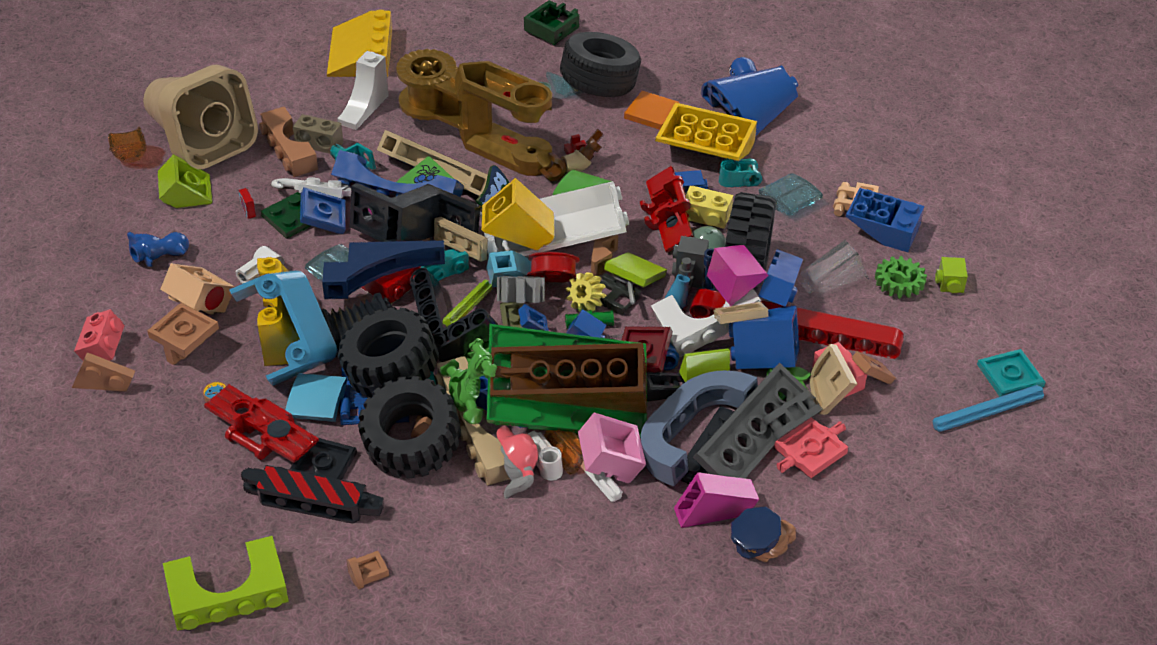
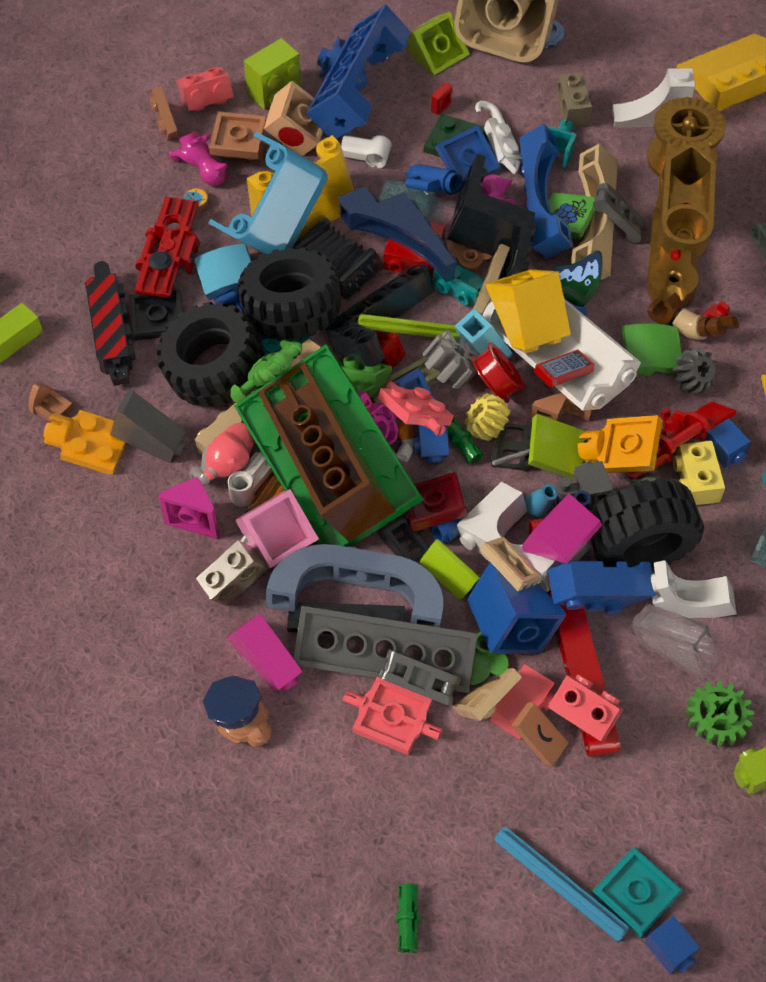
camera: 65 degrees right, 15 degrees up
(132, 285) = (271, 71): none -> lime brick
(171, 366) = (196, 152): none -> dark pink animal
(186, 231) = (338, 103): none -> blue plate
(296, 156) = (532, 101): nougat arch -> none
(330, 235) = (433, 179): none -> blue piece
(427, 551) = (85, 441): none -> light orange plate
(452, 150) = (619, 212): none -> dark grey plate
(453, 497) = (147, 428): none -> dark grey slope
(560, 492) = (189, 508): none -> dark pink slope
(571, 312) = (416, 407): none -> coral plate
(581, 227) = (564, 368): none -> tile
(621, 173) = (696, 370): none -> dark grey gear
(635, 490) = (232, 573): none -> dark tan brick
(664, 227) = (623, 444): none -> light orange plate
(807, 245) = (692, 598): none -> white arch
(874, 325) = (585, 709): none -> coral brick
(980, 500) = (408, 918): none -> green pin
(1060, 367) = (672, 946): none -> blue brick

